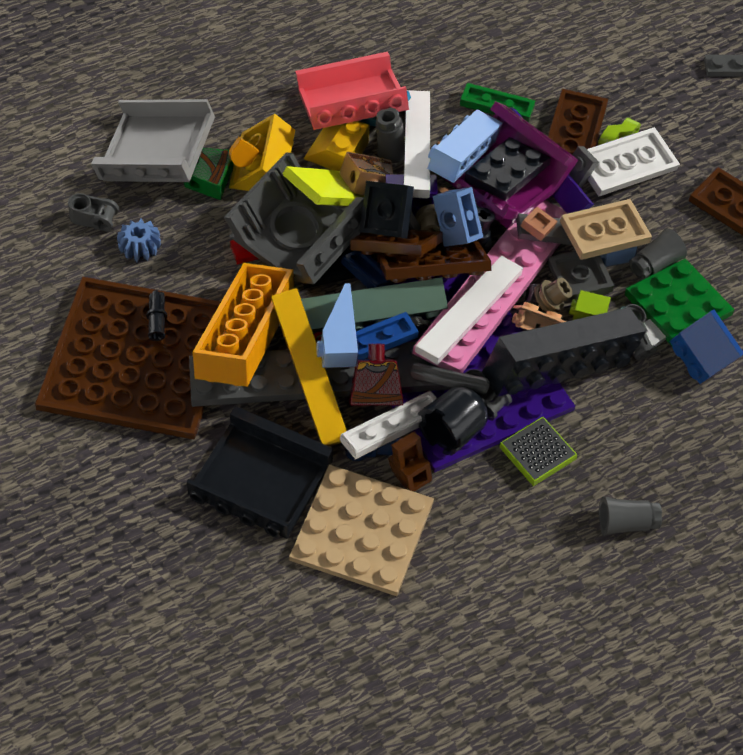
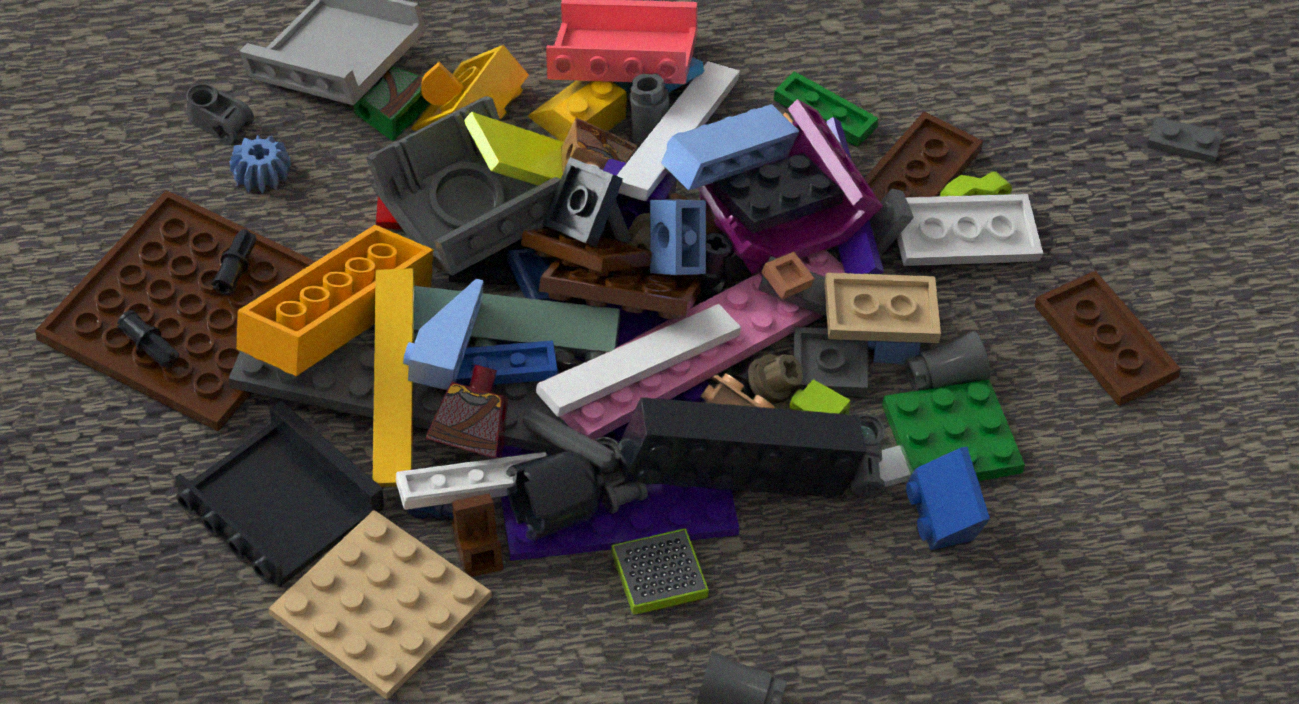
camera: 20 degrees right, 5 degrees down
(121, 388) = (147, 339): none -> black axle

